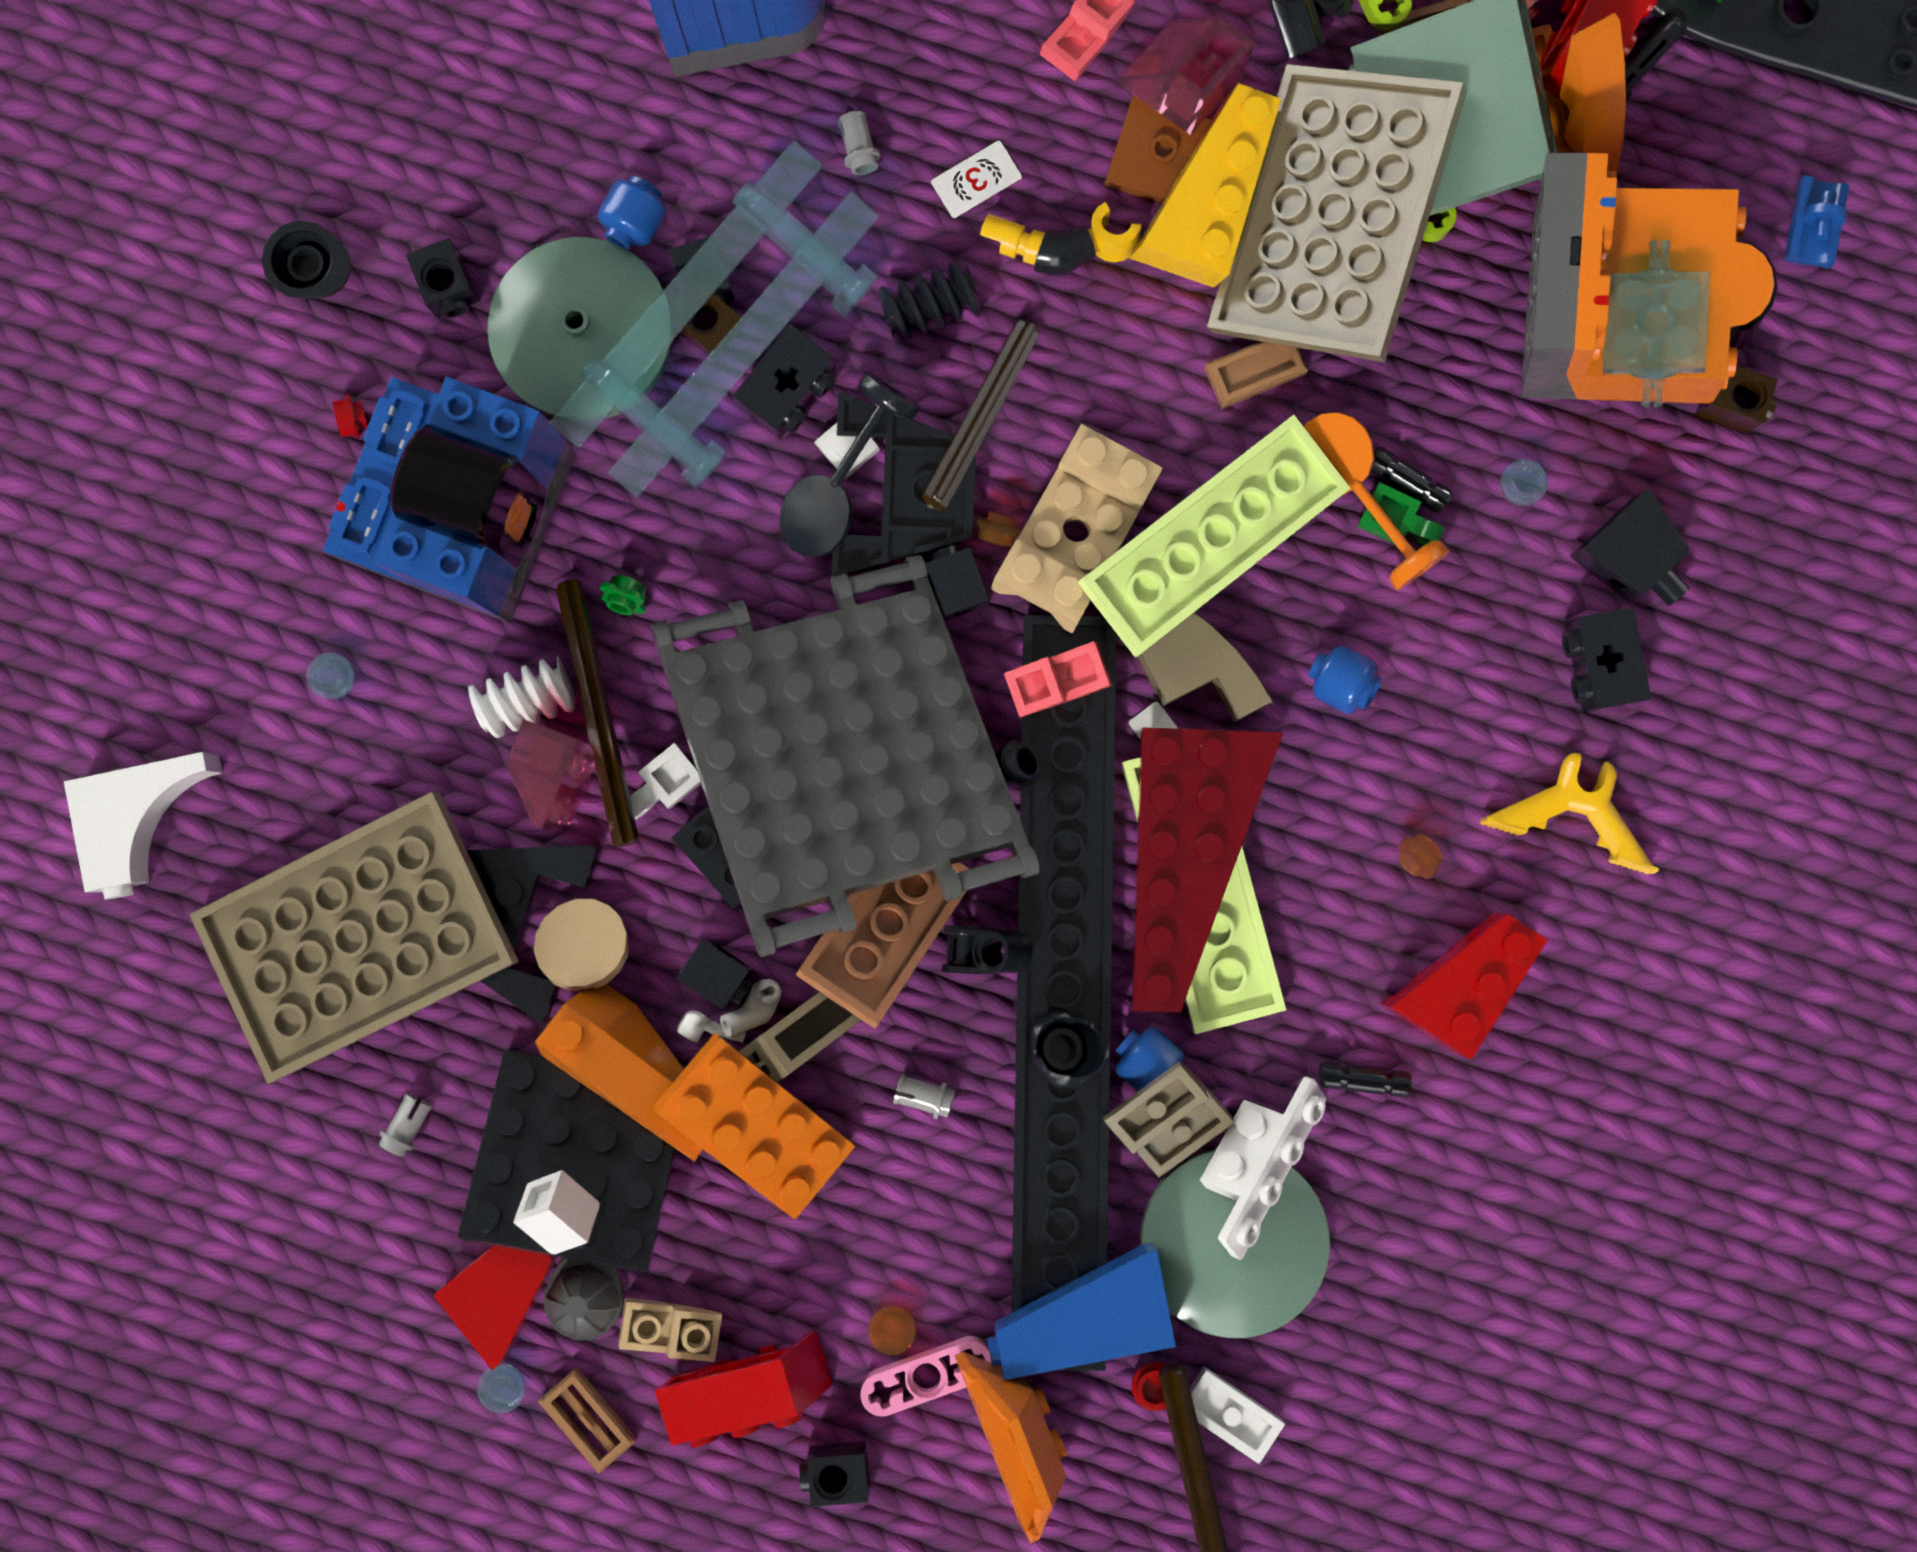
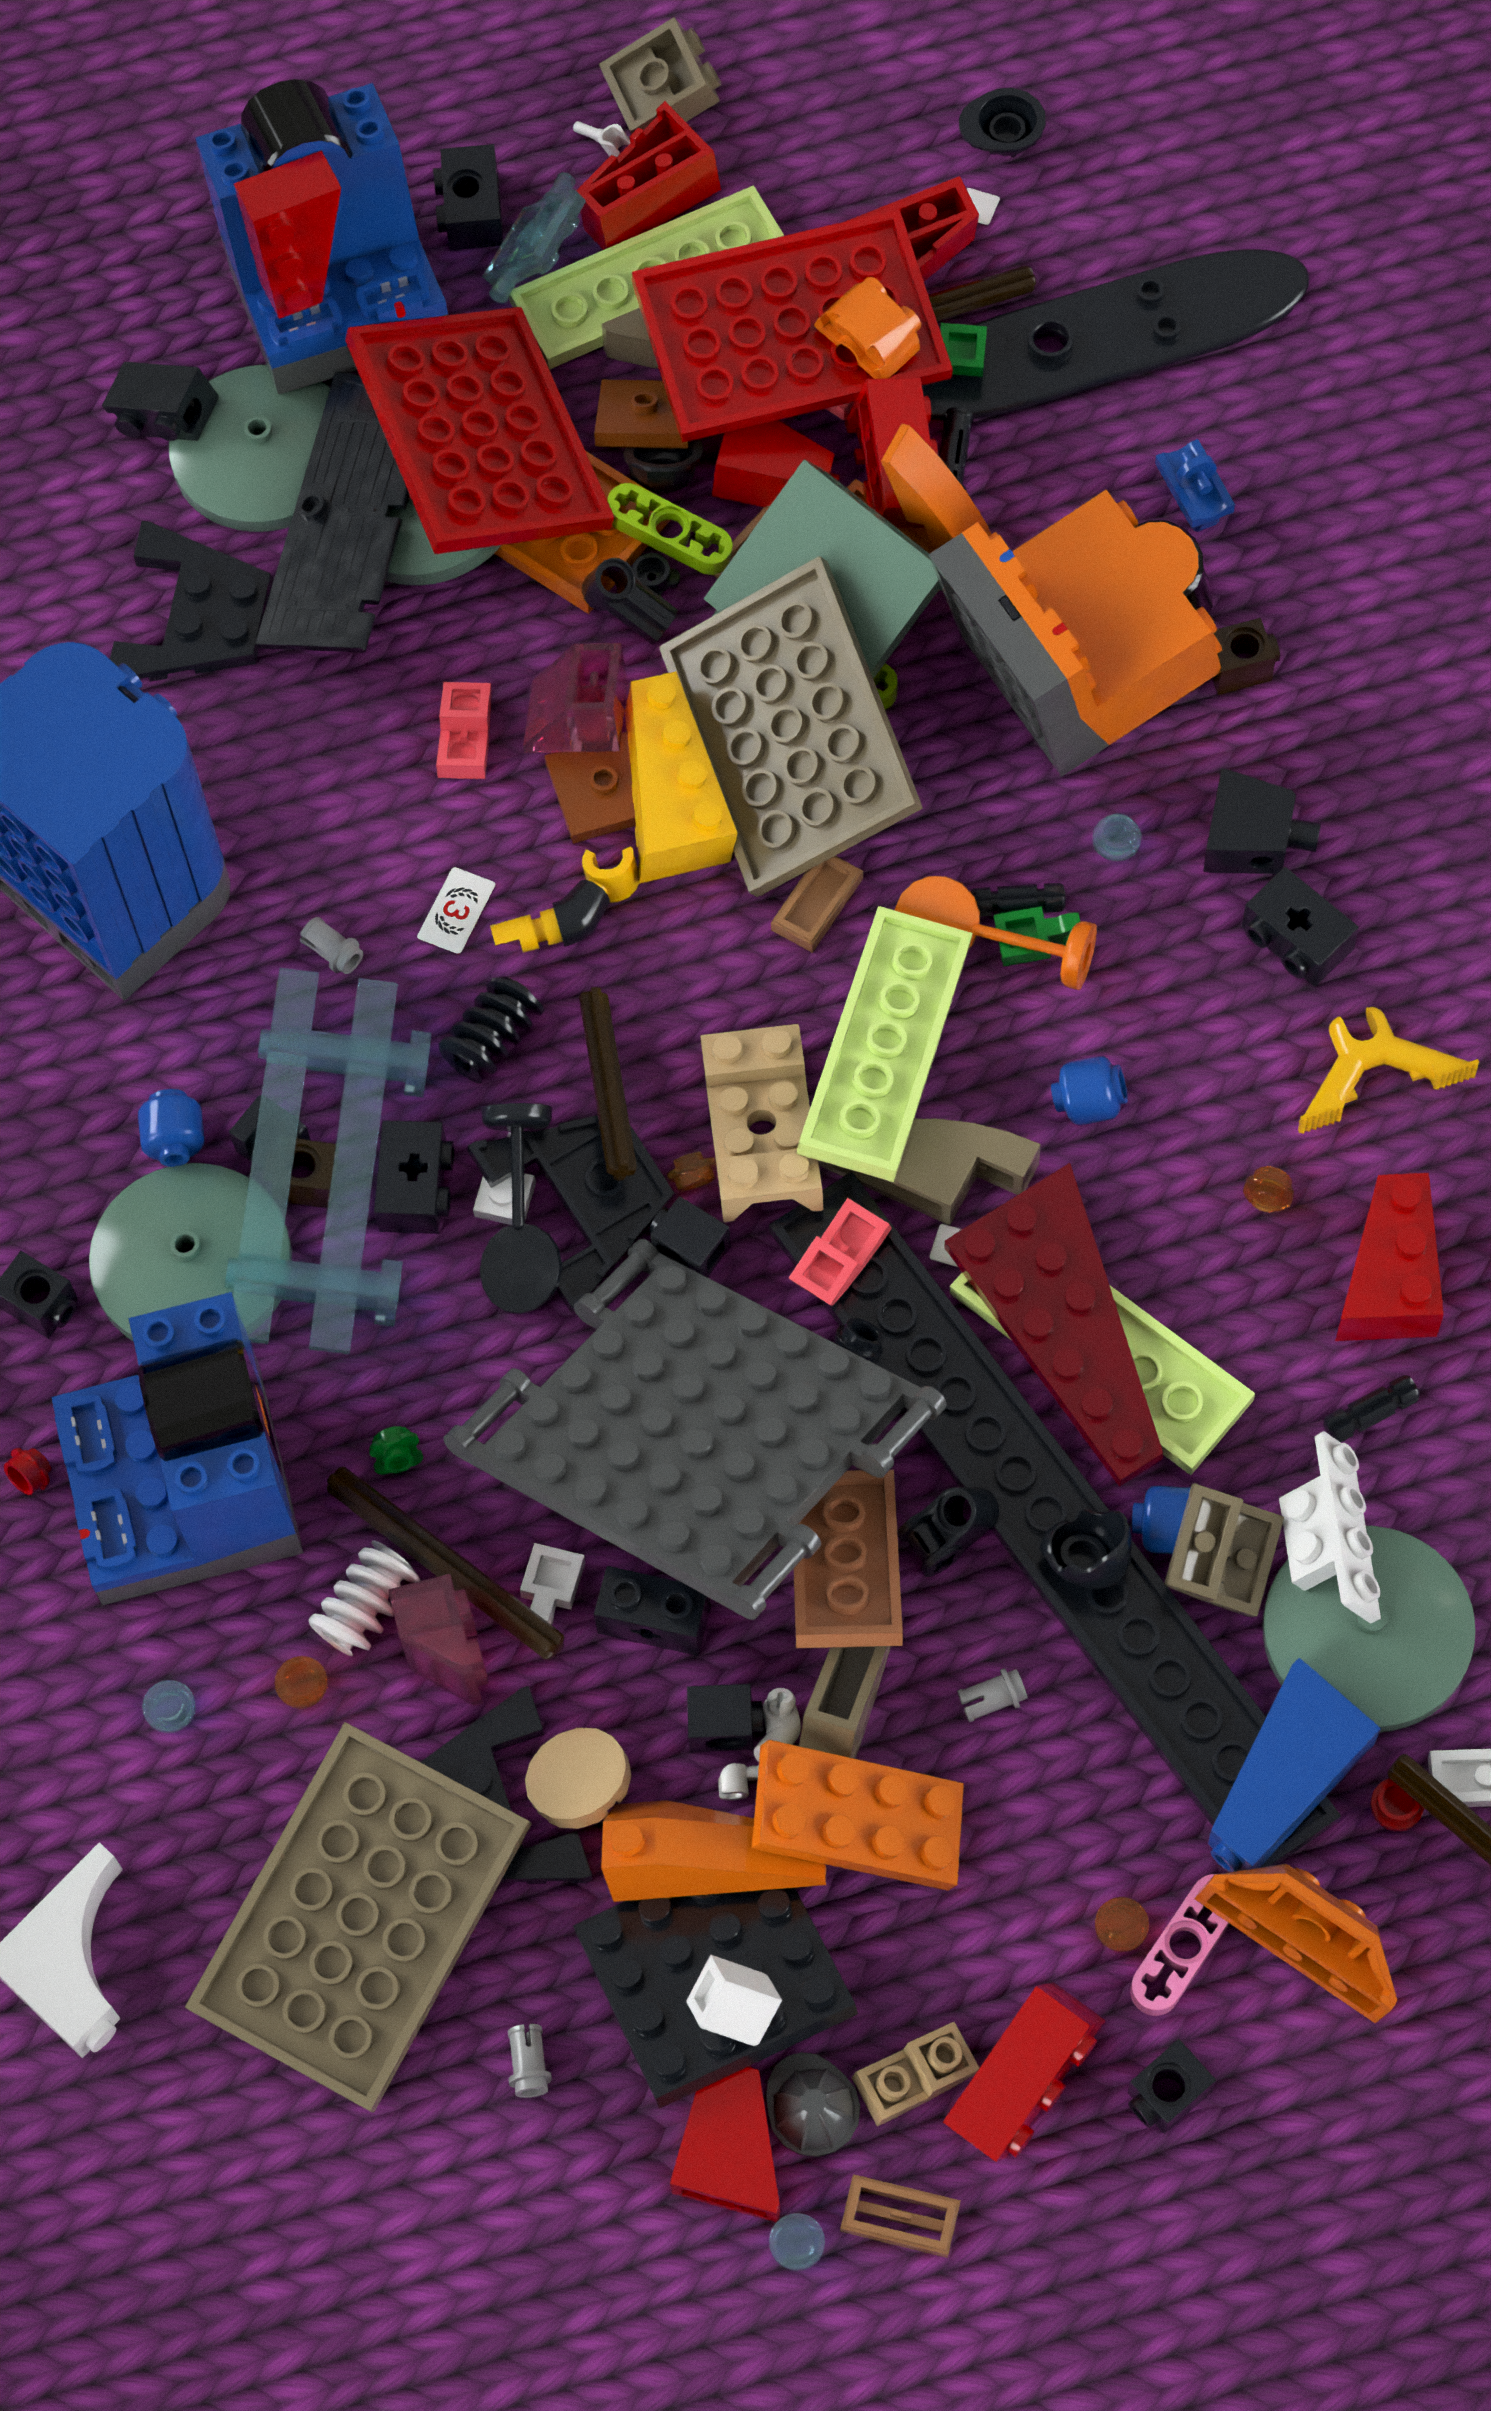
camera: 30 degrees left, 20 degrees down
(437, 725) = (301, 1682): none -> clear orange plate
(1657, 323) = (1122, 628): clear light blue plate -> none

